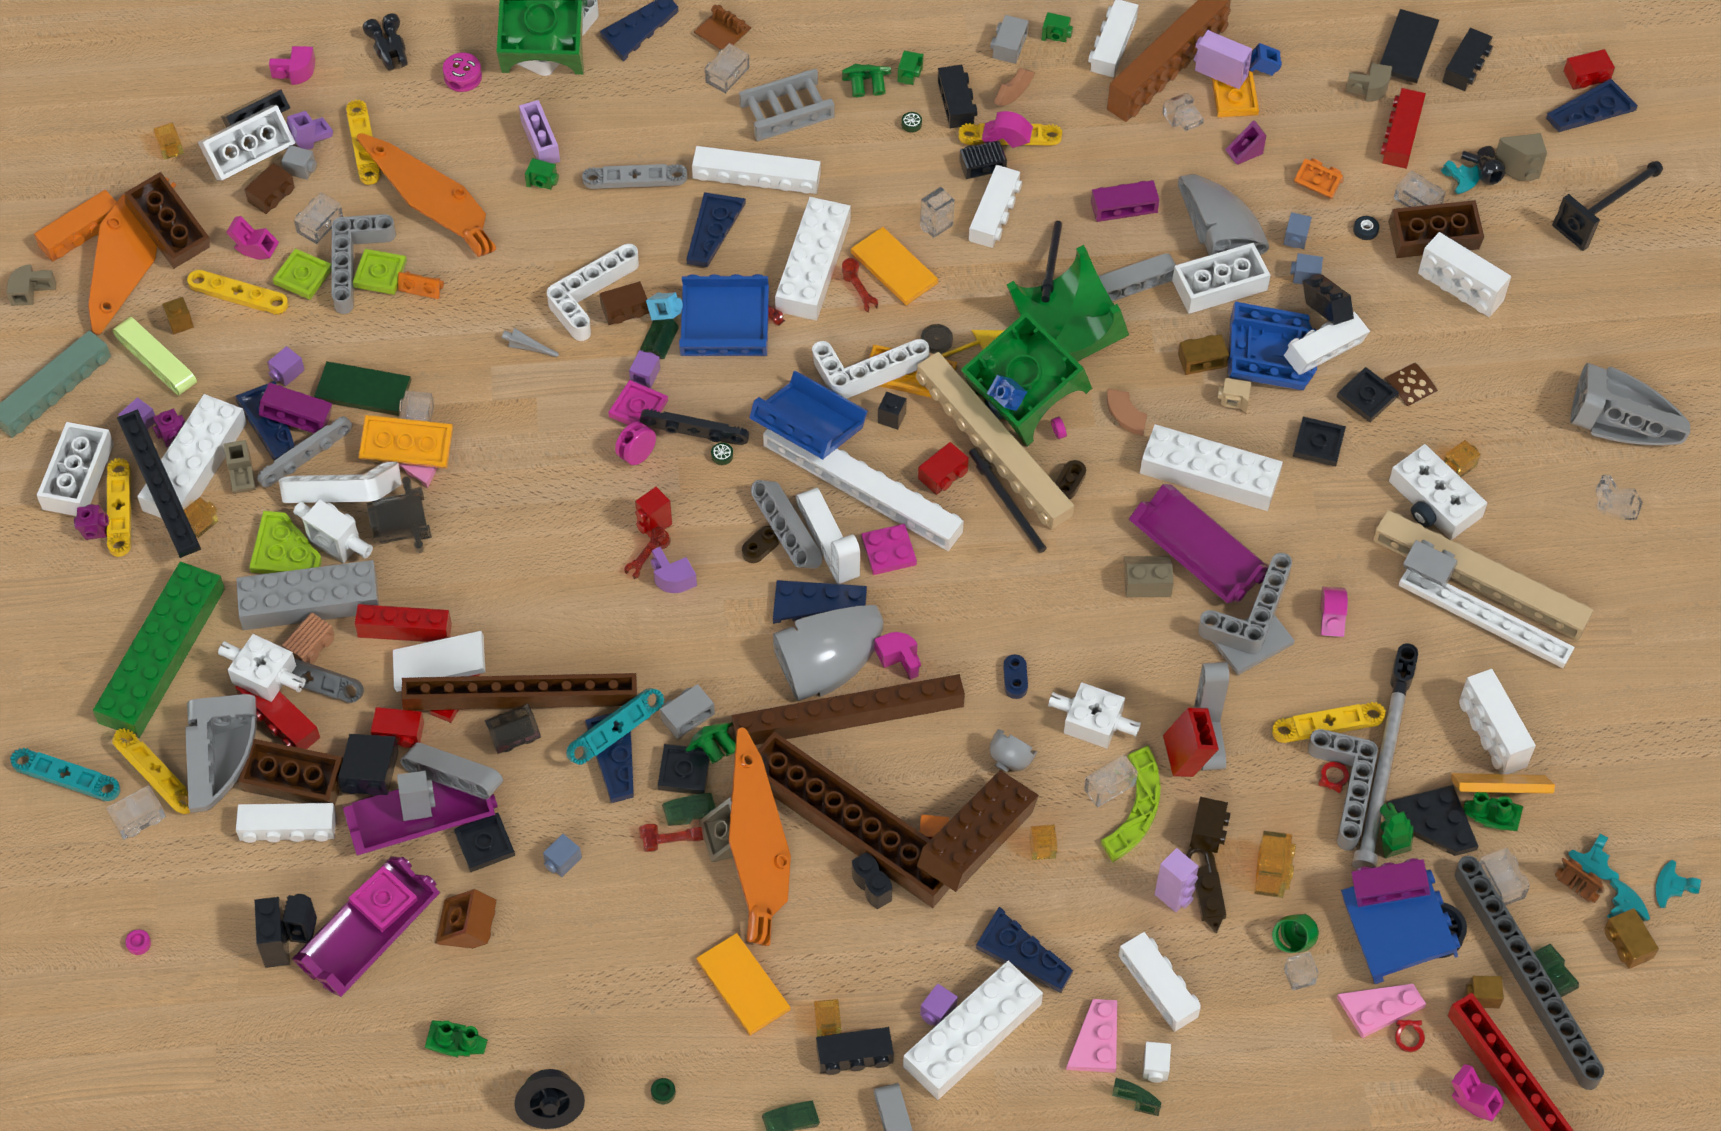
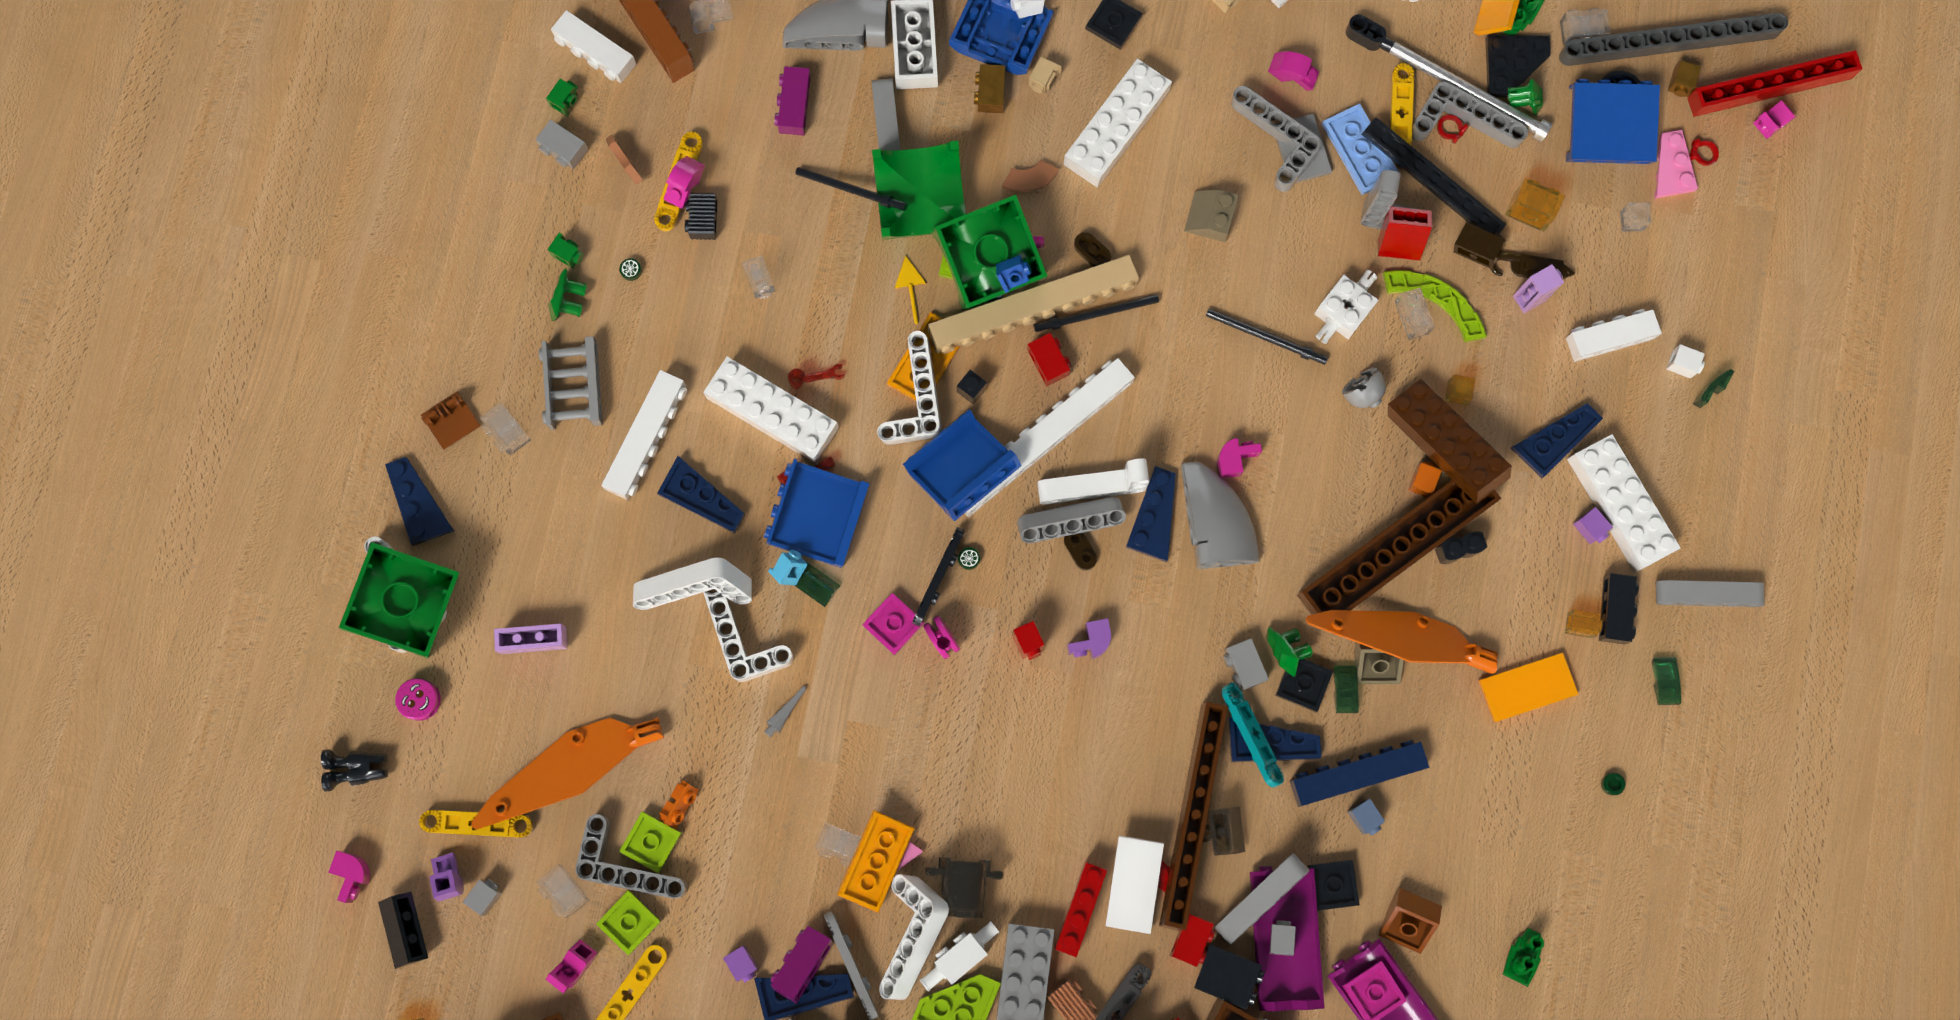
camera: 75 degrees left, 20 degrees up
(258, 147) = (445, 947): white brick -> none
(269, 188) = (507, 934): reddish brown brick -> none
(362, 388) = (788, 890): dark green tile -> none
(541, 174) = (581, 648): green brick -> none
(549, 1100) = (1610, 886): black wheel -> none
(605, 840) = (1359, 774): none -> dark blue brick
(623, 176) = (608, 572): light grey piece -> none
(624, 303) = (768, 606): reddish brown brick -> none
(631, 233) = (692, 580): none -> white beam
(645, 368) = (852, 606): medium lavender brick -> none
(652, 838) = (1366, 731): clear red brick -> none
(662, 541) = (1070, 668): clear red brick -> none
(853, 709) = (1285, 520): reddish brown brick -> none
(889, 549) = (1118, 434): dark pink plate -> none
(894, 266) = (799, 336): light orange tile -> none
(944, 336) = (896, 314): clear smoke piece -> none
(956, 95) = (616, 217): black brick -> none
(994, 206) = (761, 221): white brick -> none
(1015, 674) = (1283, 363): dark blue plate -> none
(1033, 691) = (1305, 352): none -> black bar
(1097, 1039) = (1652, 404): bright pink wing -> none
(1199, 544) = (1194, 160): magenta cylinder -> none
(1266, 767) = (1431, 177): none -> black tile
(1273, 693) = (1357, 153): none -> light blue plate
(1297, 931) = (1601, 205): green helmet -> none
(1390, 882) = (1589, 114): magenta brick -> none
(1554, 967) = (1677, 17): clear green slope -> none

